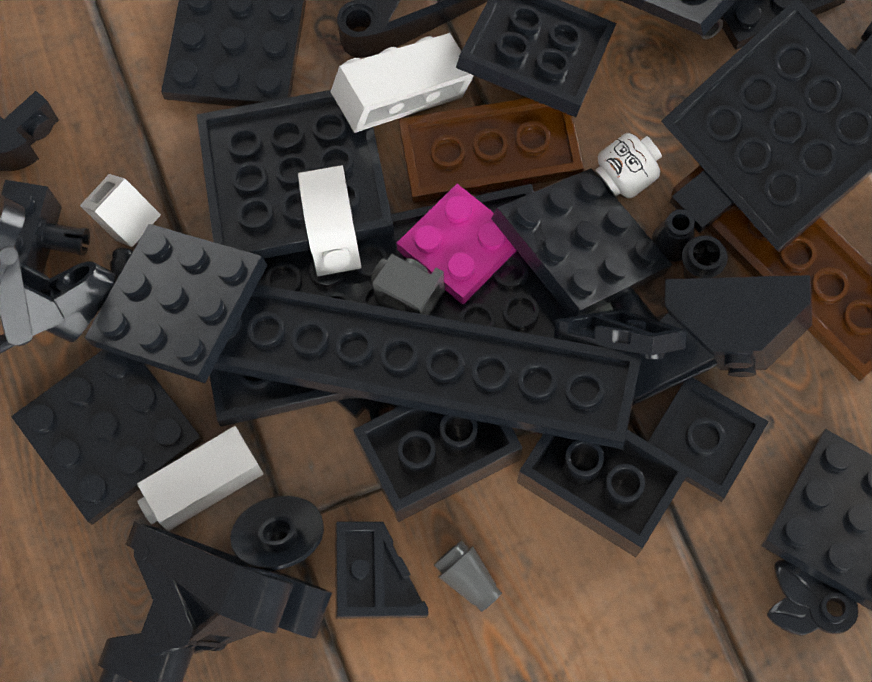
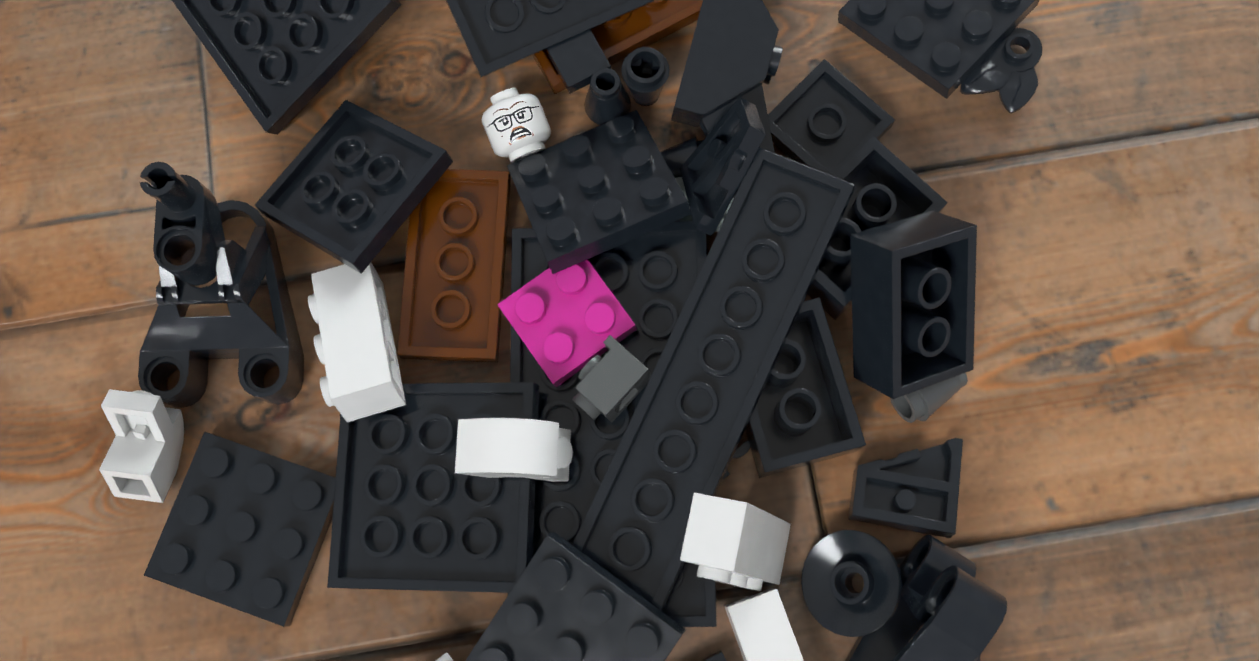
camera: 75 degrees left, 5 degrees up
(285, 413) = (734, 542): none -> white brick
(534, 528) = (913, 302): none -> black brick

